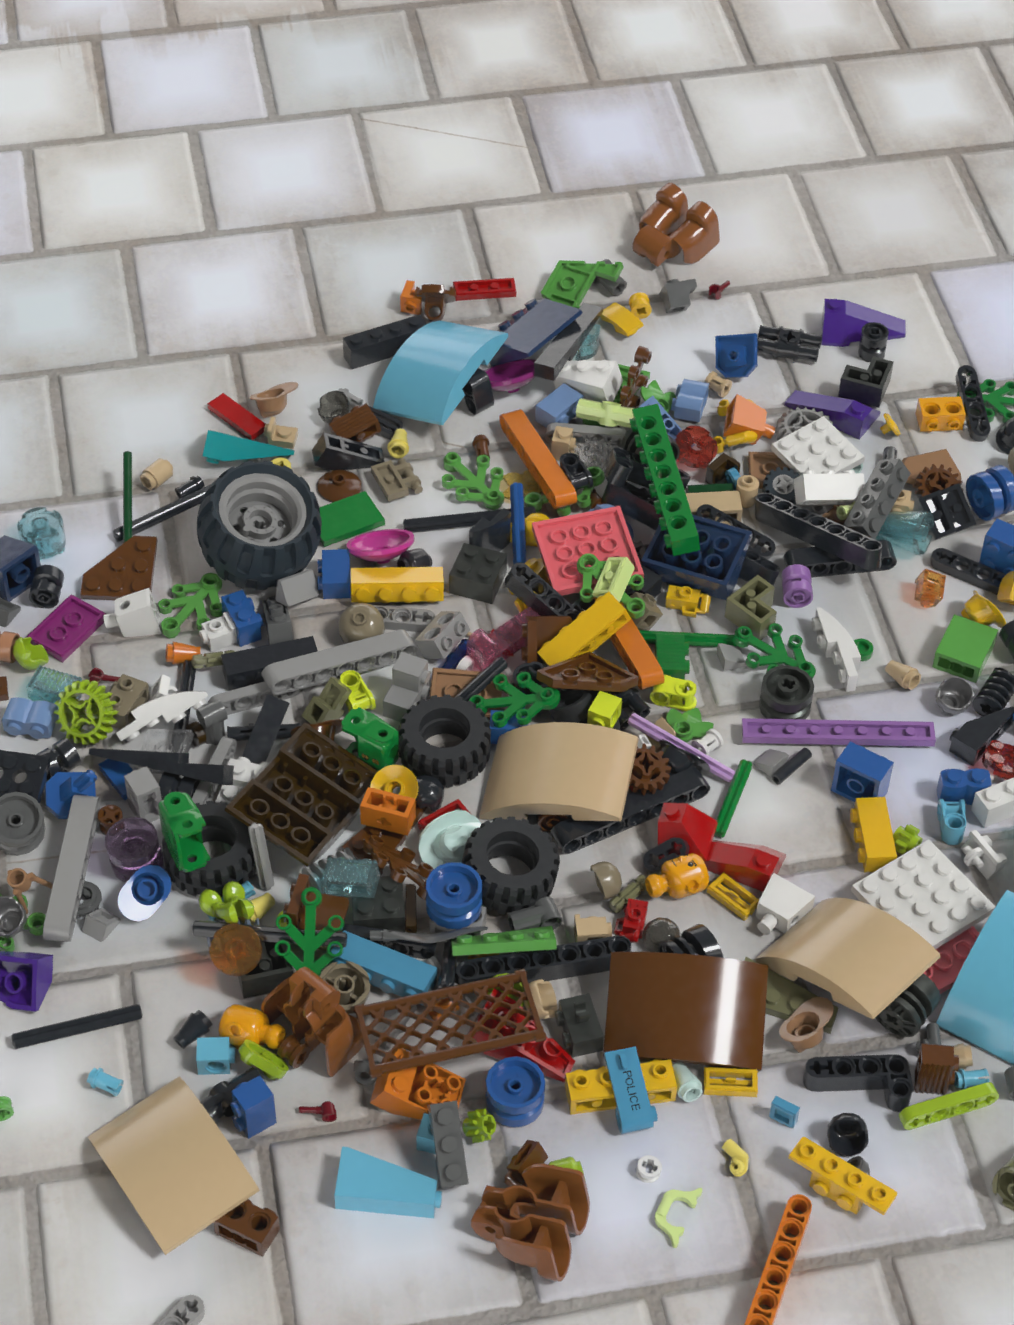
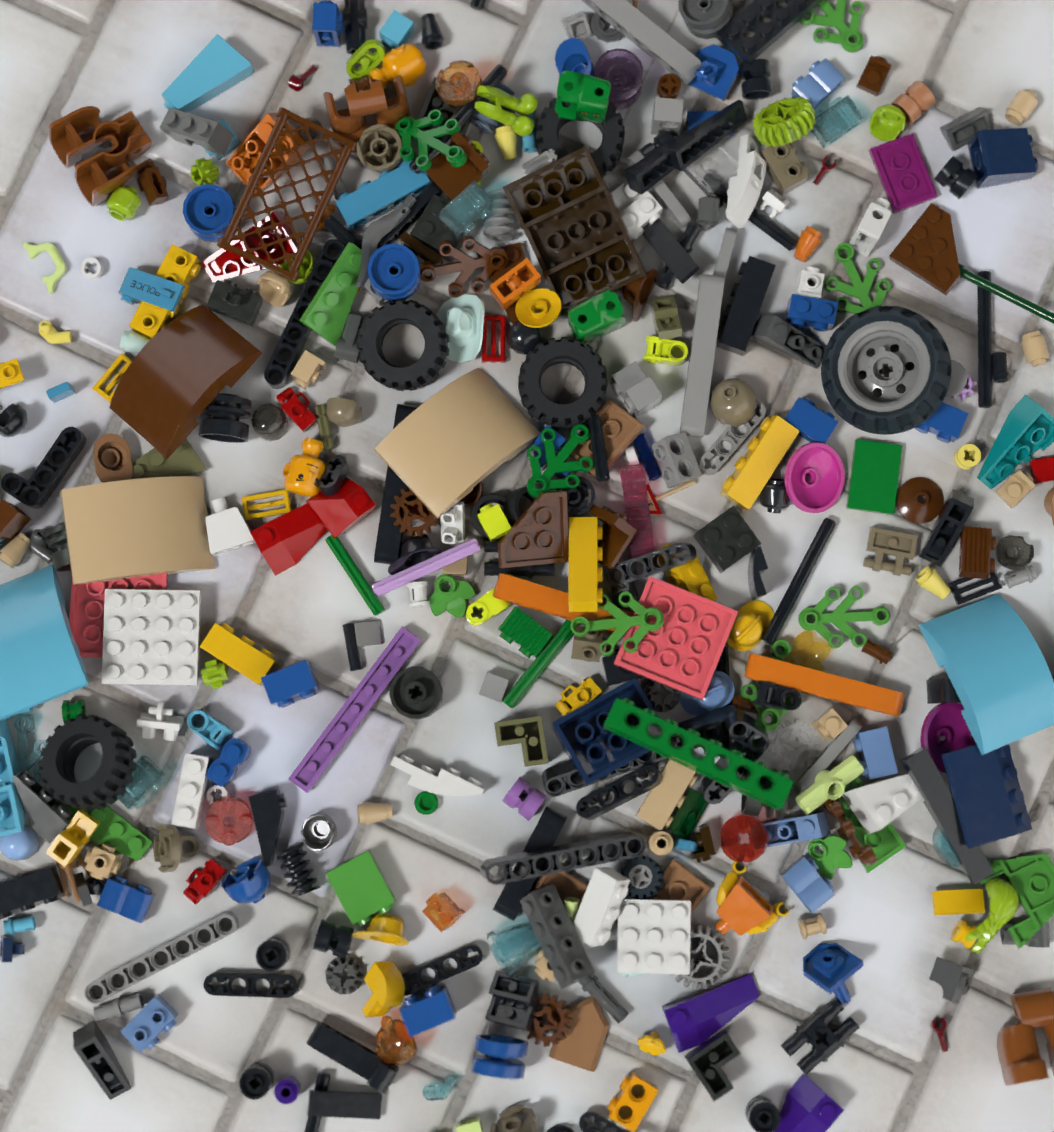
camera: 125 degrees right, 35 degrees up
(43, 530) = (1031, 199): clear light blue brick -> none
(209, 659) = (781, 263): olive axle -> none
(297, 588) = (809, 375): light grey slope -> none
(518, 523) = (756, 610): blue axle -> none
(603, 290) = (1003, 907): none -> lime hair
(614, 577) = (619, 626): yellowish green slope -> none
(776, 655) = (463, 722): green plant -> none

